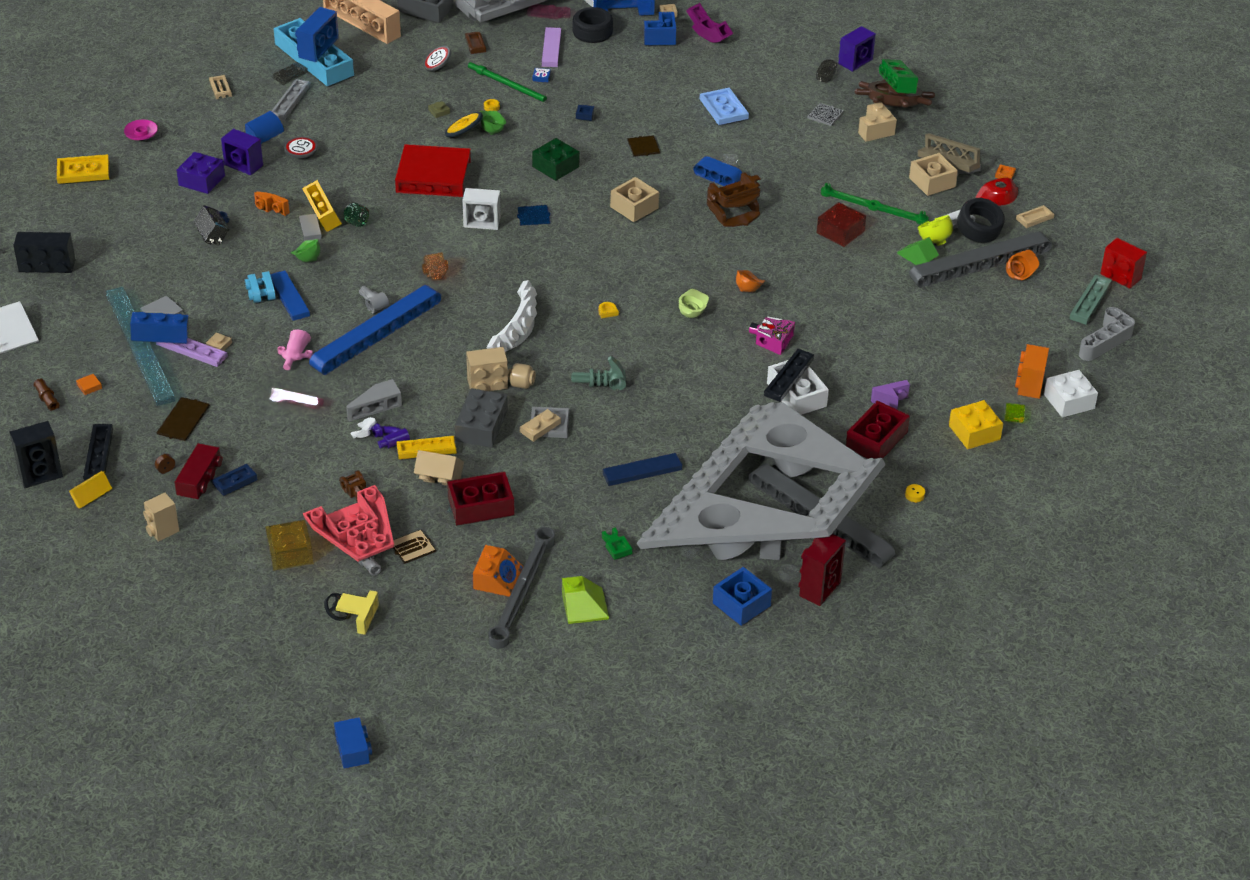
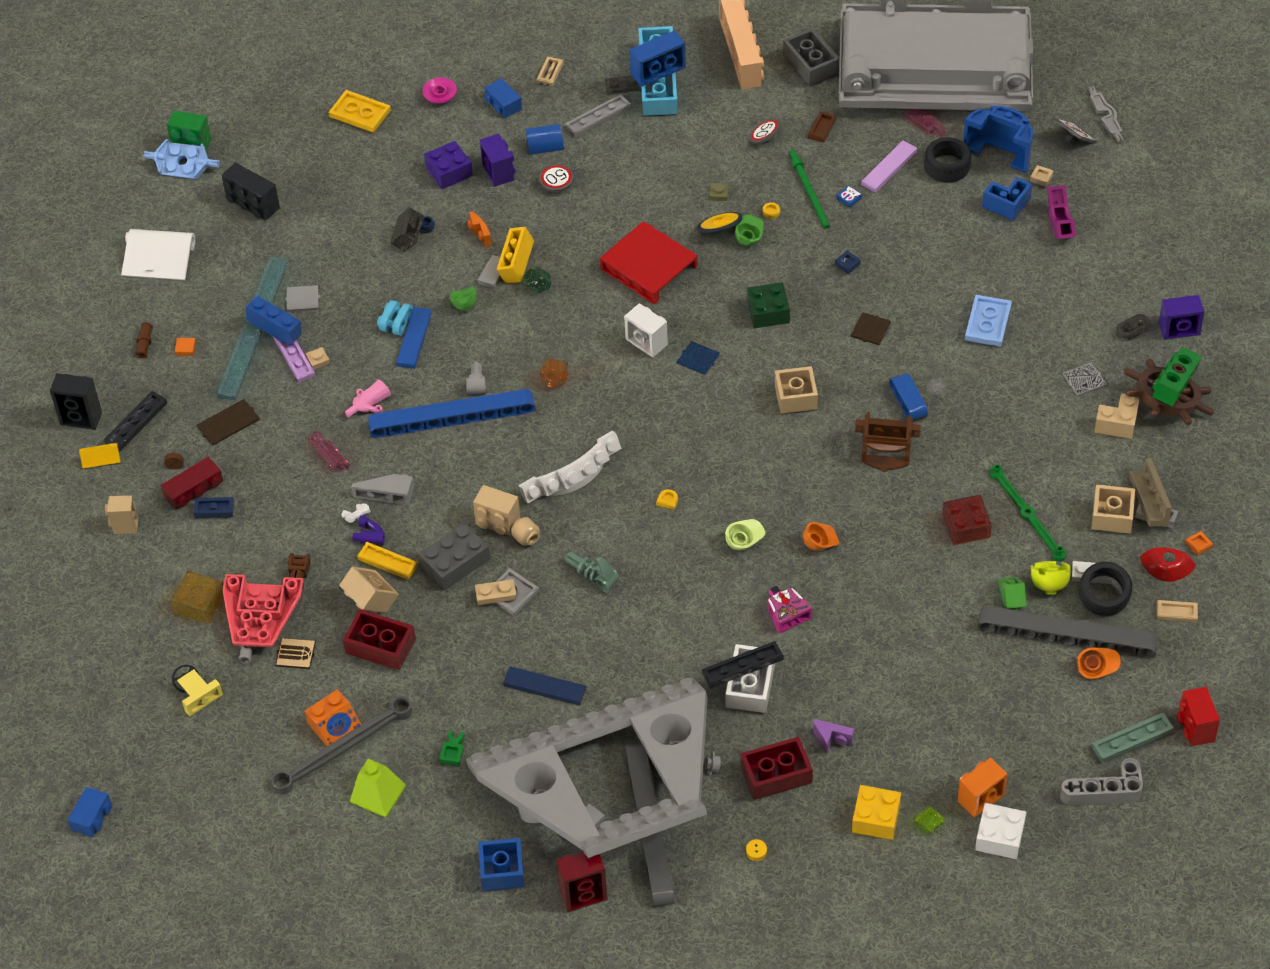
camera: 40 degrees right, 10 degrees up
(201, 115) = (503, 98): none -> blue brick

